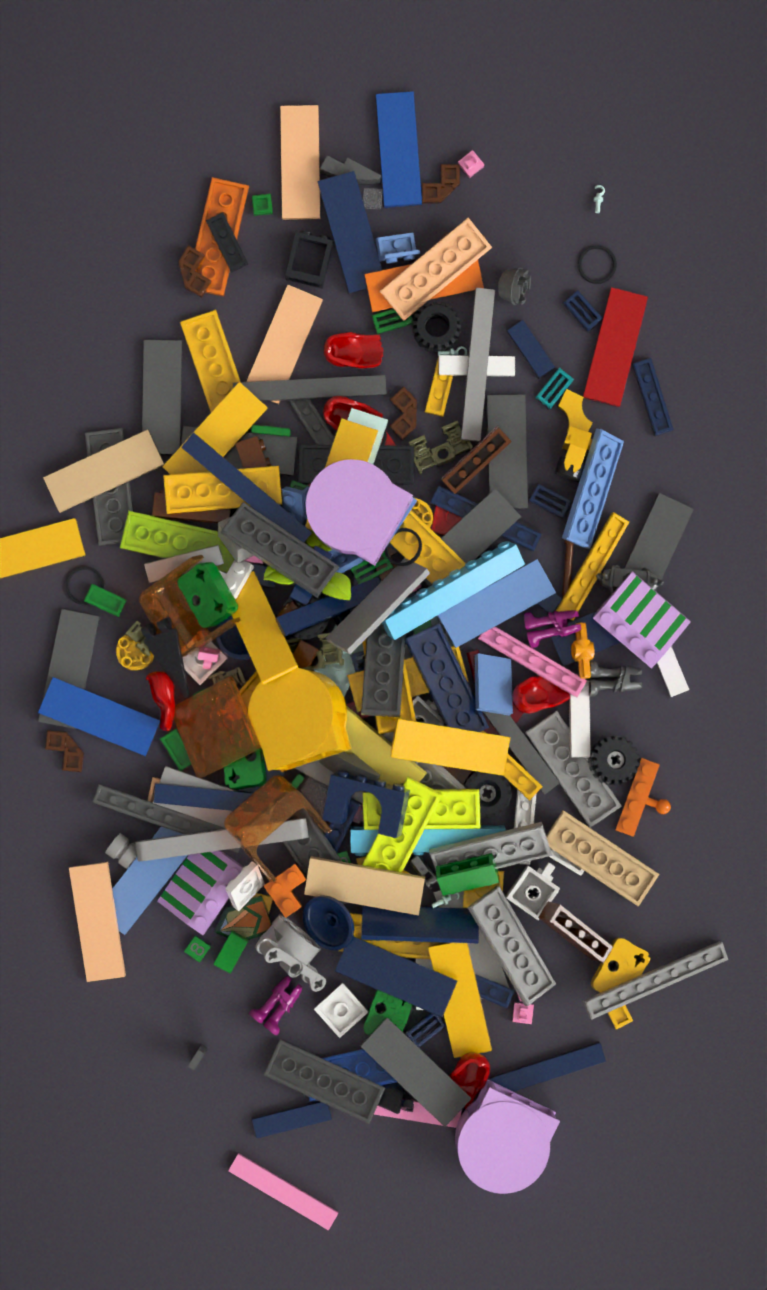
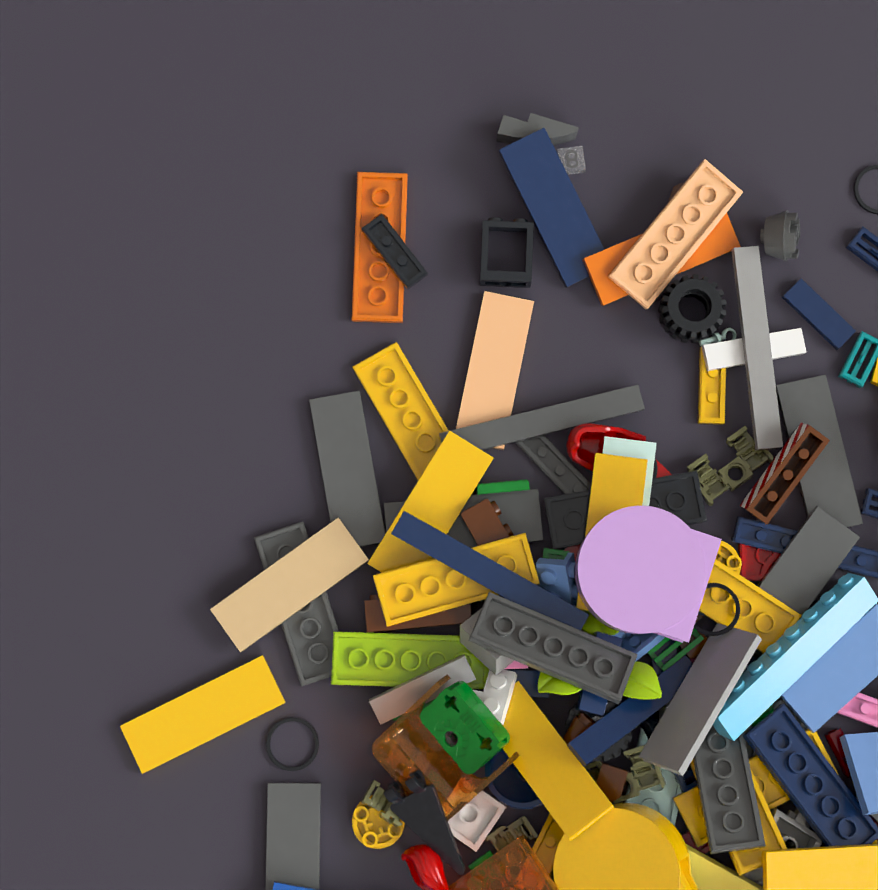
camera: 10 degrees left, 5 degrees down
(105, 600) = (324, 759): green tile -> none
(188, 265) = (359, 309): reddish brown tile -> none
(208, 655) = (482, 810): bright pink tile -> none
(262, 204) = (429, 194): green tile -> none
(300, 162) = (468, 132): light nougat tile -> none
(354, 350) = (590, 360): red hair -> none
(393, 319) = (611, 320): green tile -> none
(396, 247) = (618, 215): medium blue bracket -> none
(398, 149) = (592, 92): blue tile -> none
(407, 420) = (674, 419): reddish brown tile -> none
(437, 192) = (665, 118): reddish brown tile -> none
(471, 164) = (688, 92): bright pink tile -> none
(598, 199) = (862, 106): light aqua hand -> none

